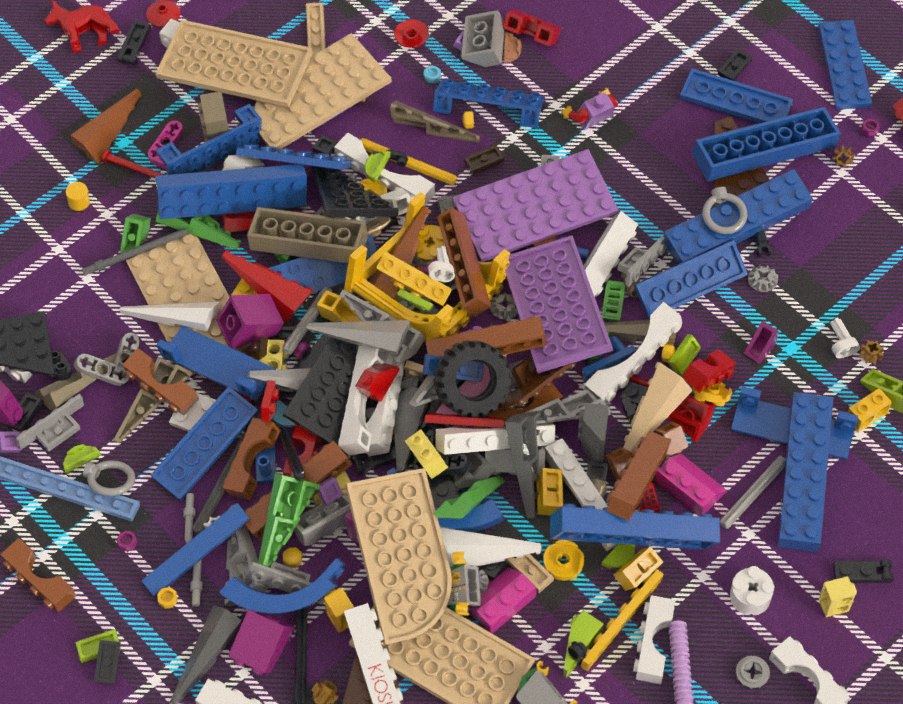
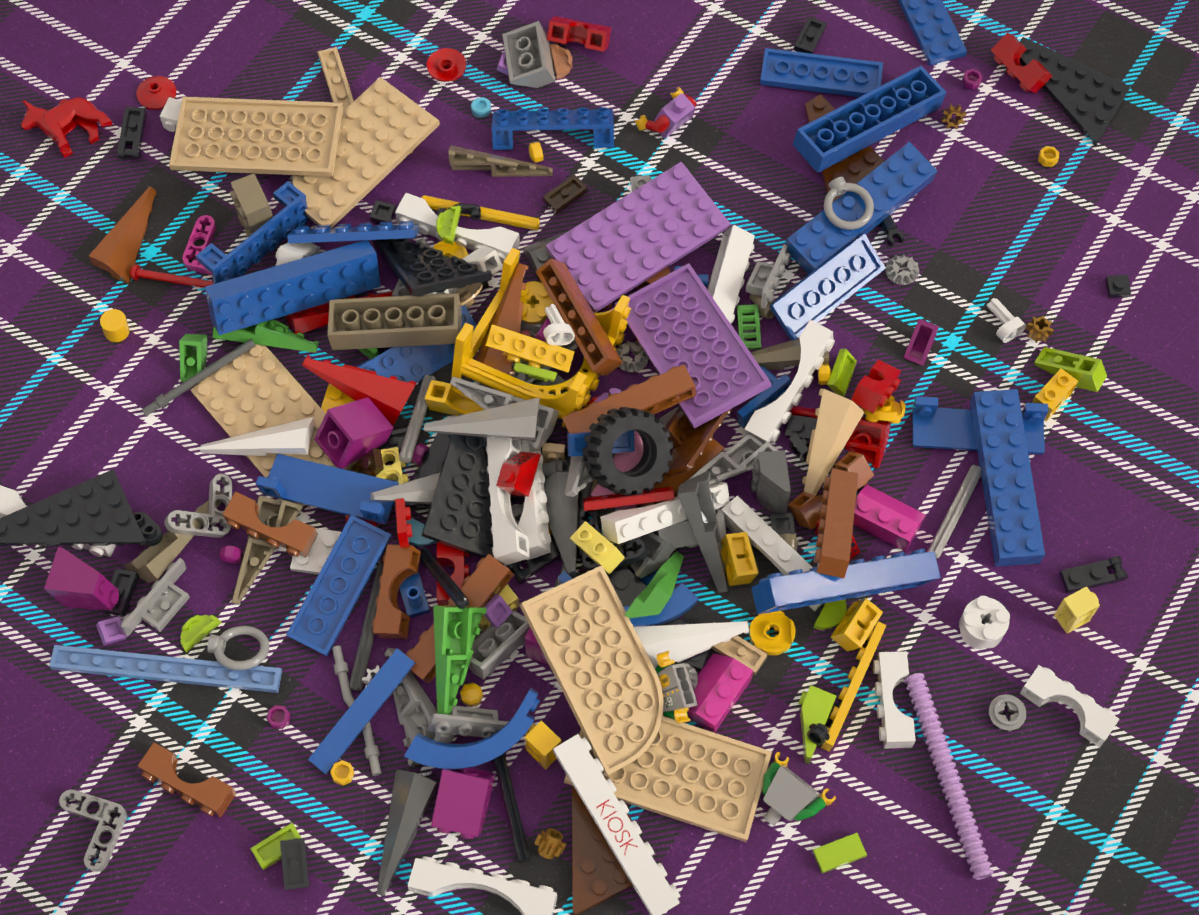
camera: 15 degrees left, 5 degrees up
(123, 400) = (231, 554): none -> magenta tile

